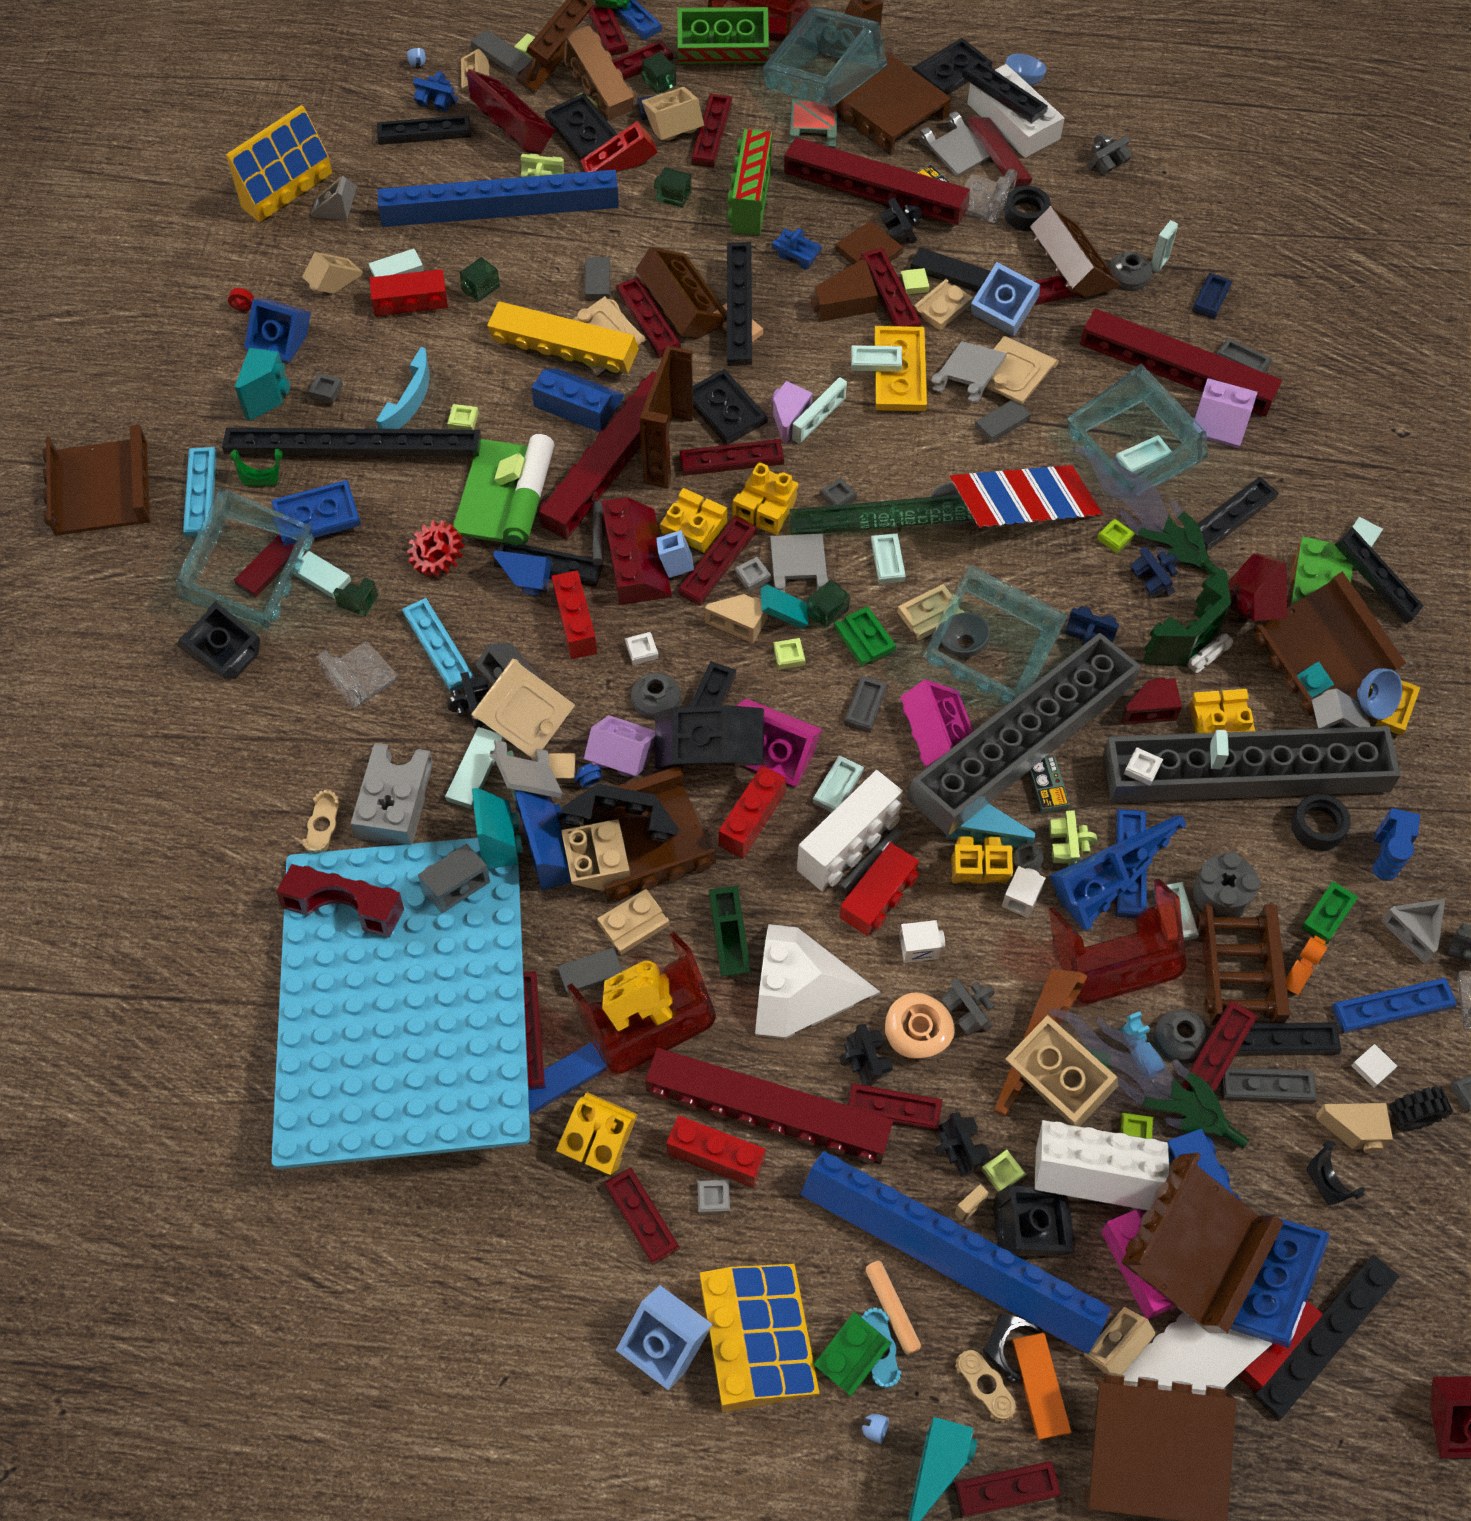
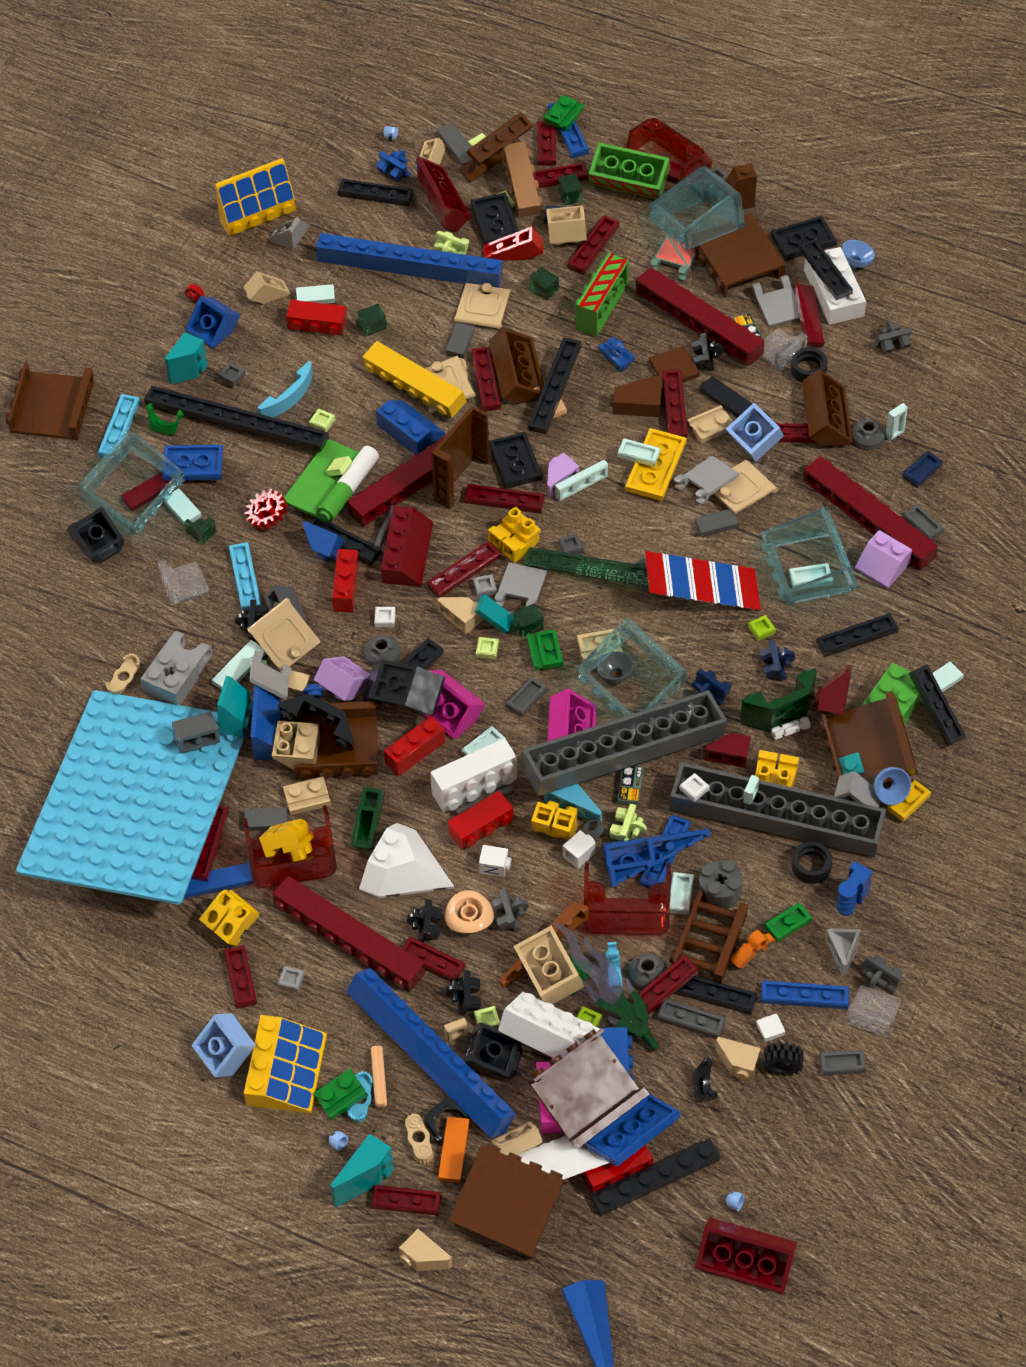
camera: 20 degrees right, 5 degrees down
(308, 889) = (98, 713): dark red arch -> none
(609, 234) = (482, 308): none -> tan container
(675, 554) = (432, 556): light blue brick -> none
(698, 519) = (456, 537): yellow hips -> none
(716, 1151) = (302, 950): red brick -> none
(888, 558) = (587, 600): light aqua tile -> none
(914, 281) = (697, 401): yellowish green tile -> none
(1155, 521) = (792, 625): piece -> none
(1448, 1337) = (735, 1200): none -> light blue hinge

